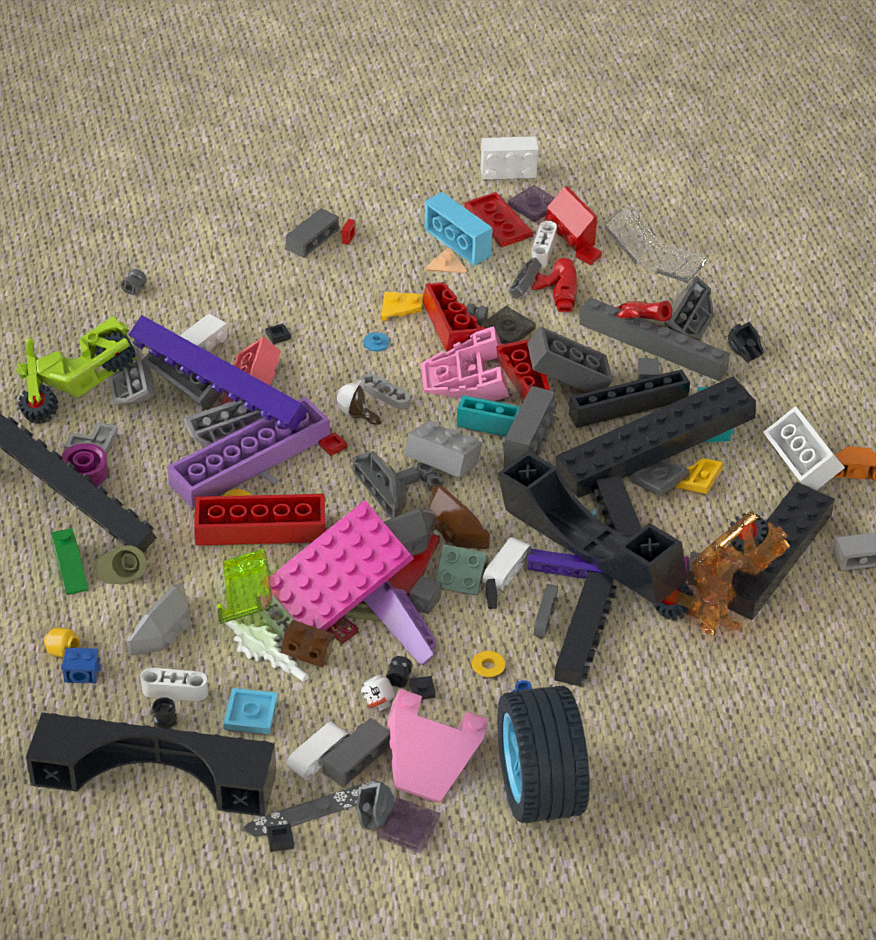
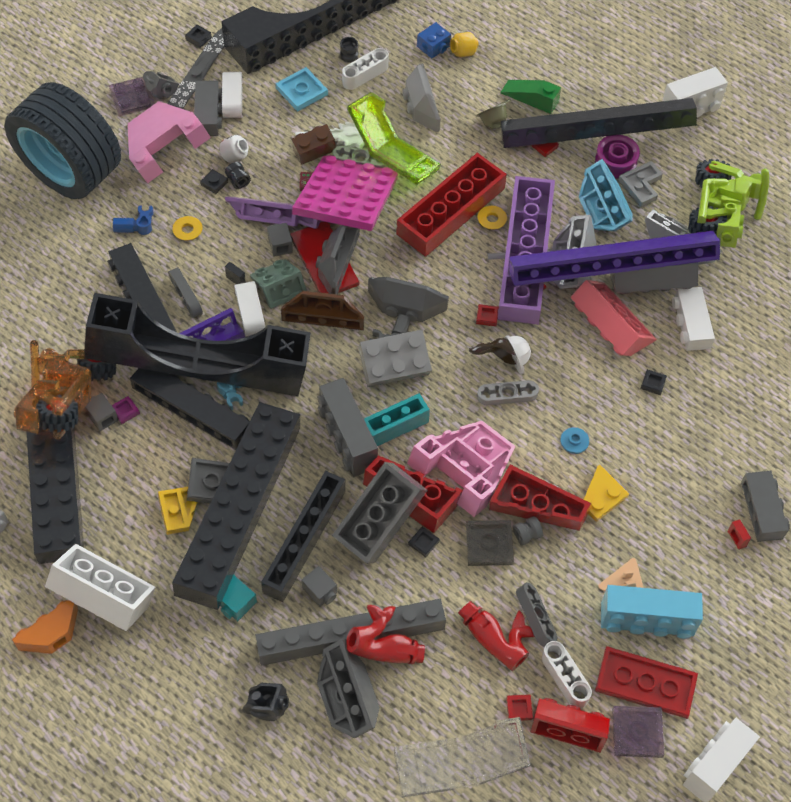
camera: 135 degrees right, 15 degrees up
(147, 440) = (604, 199): none -> medium azure wedge

